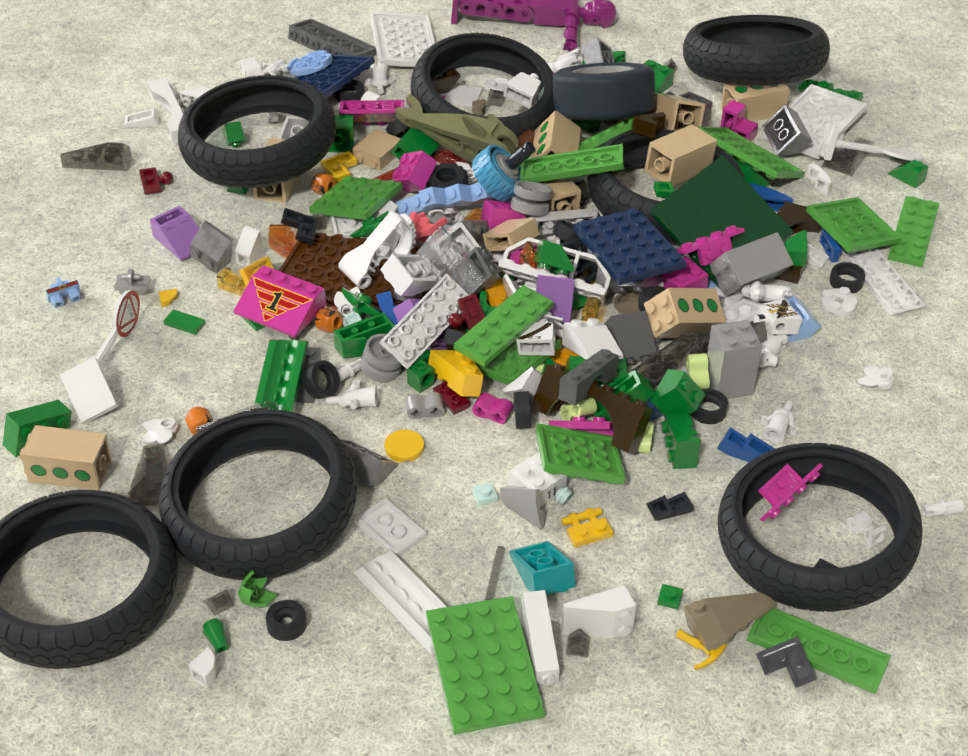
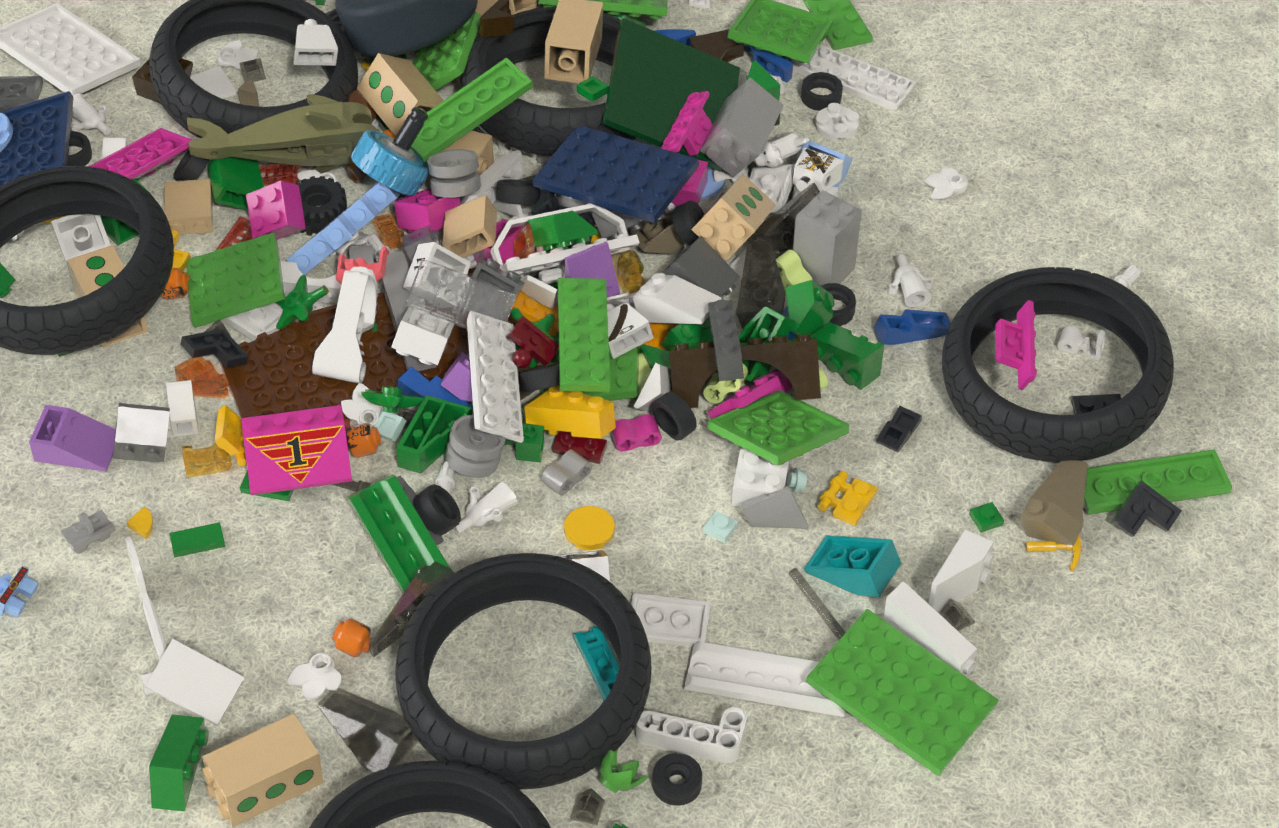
camera: 40 degrees left, 5 degrees up
(334, 616) = (656, 728): none -> white beam

